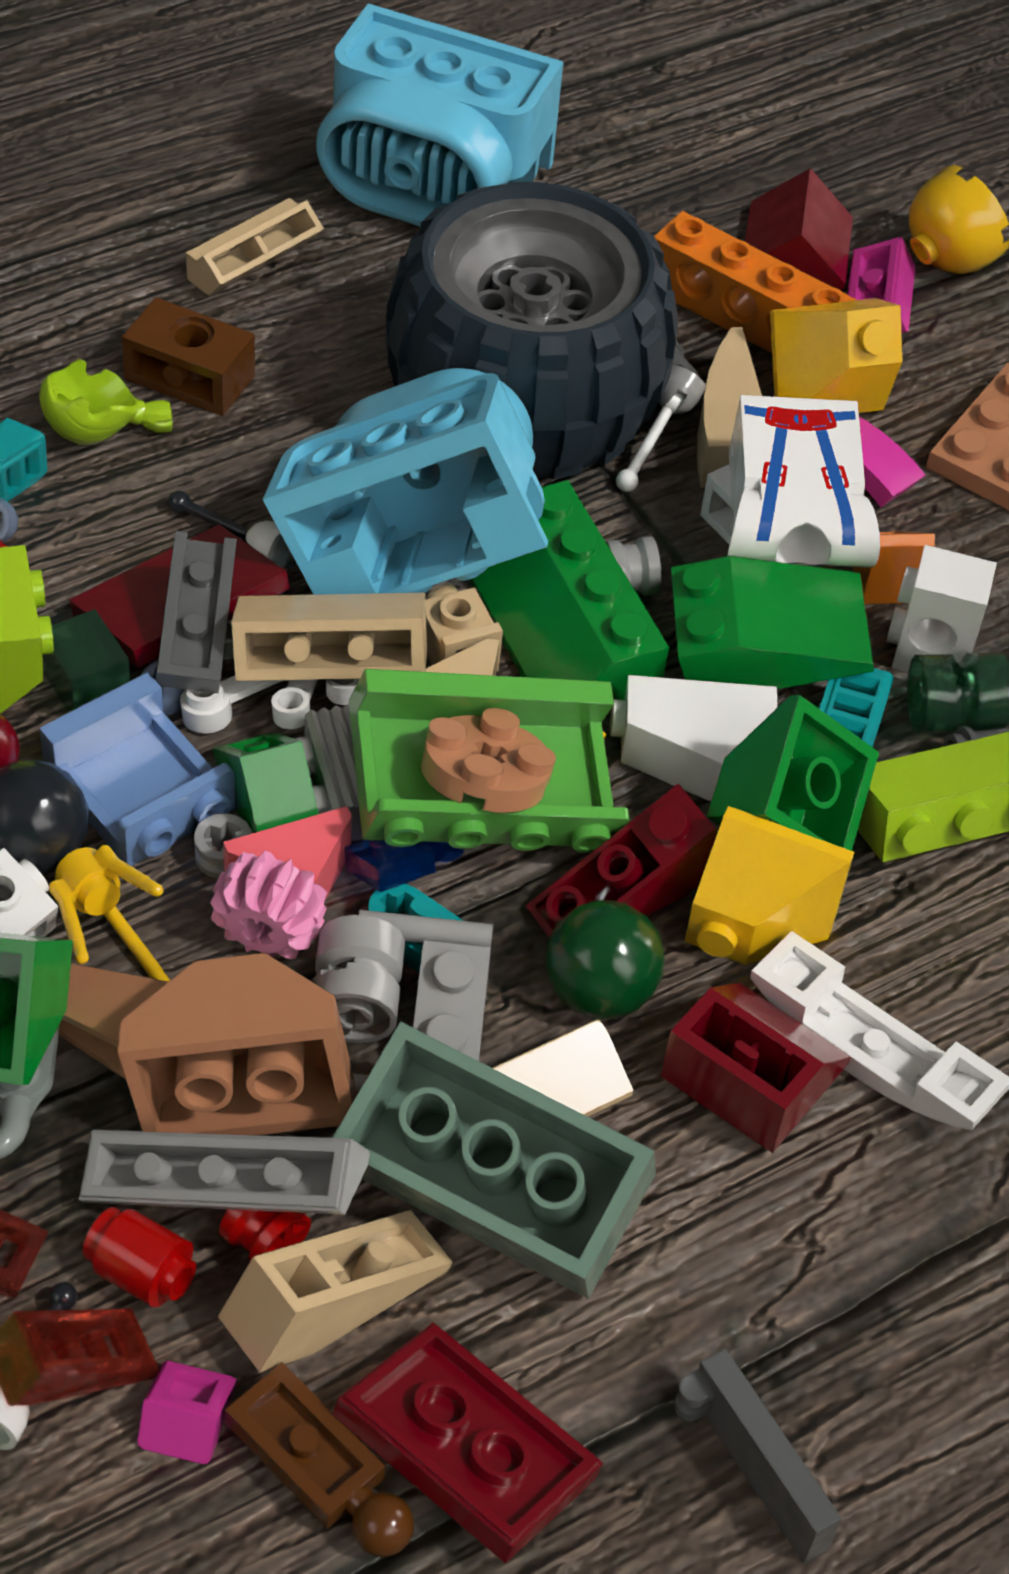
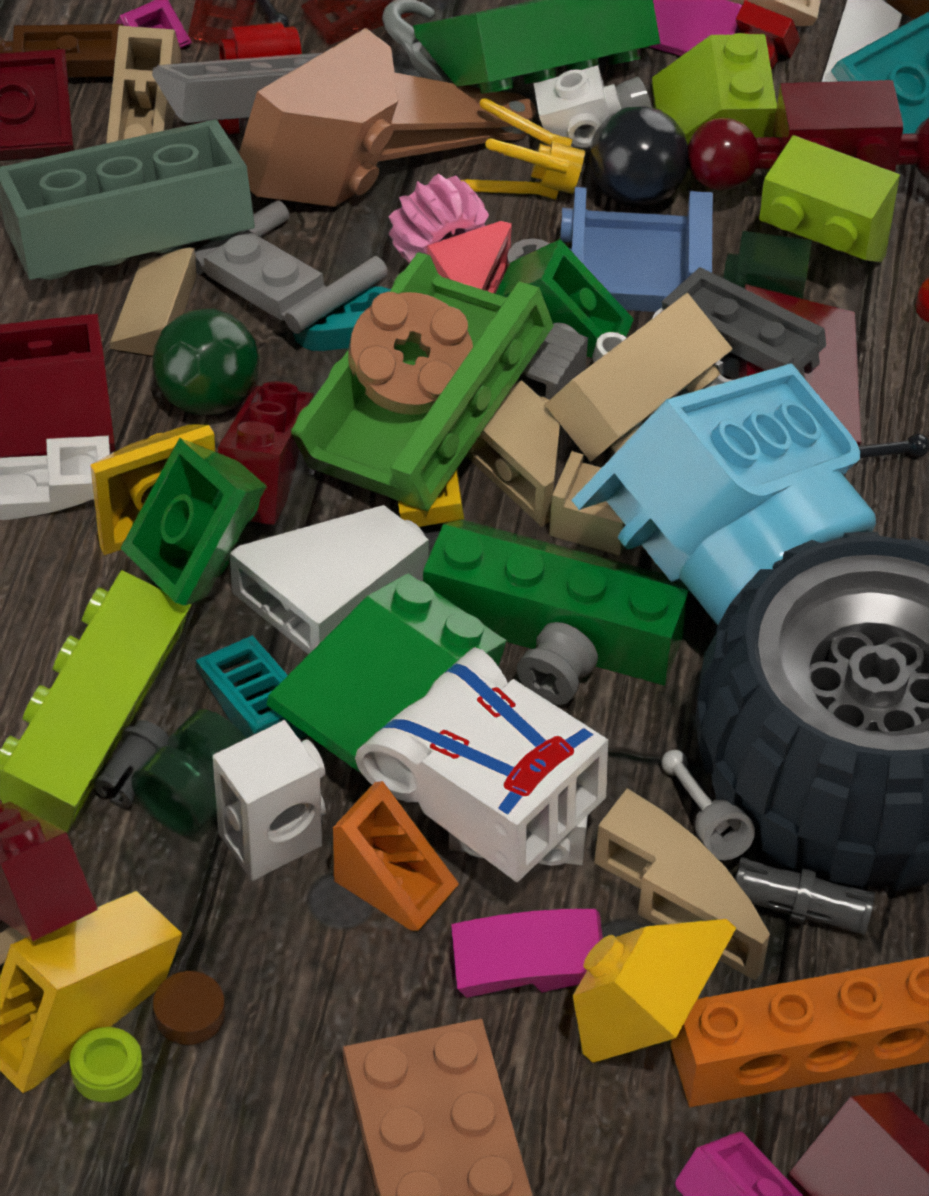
camera: 135 degrees right, 0 degrees up
(361, 966) = (333, 236): light grey wheel -> none

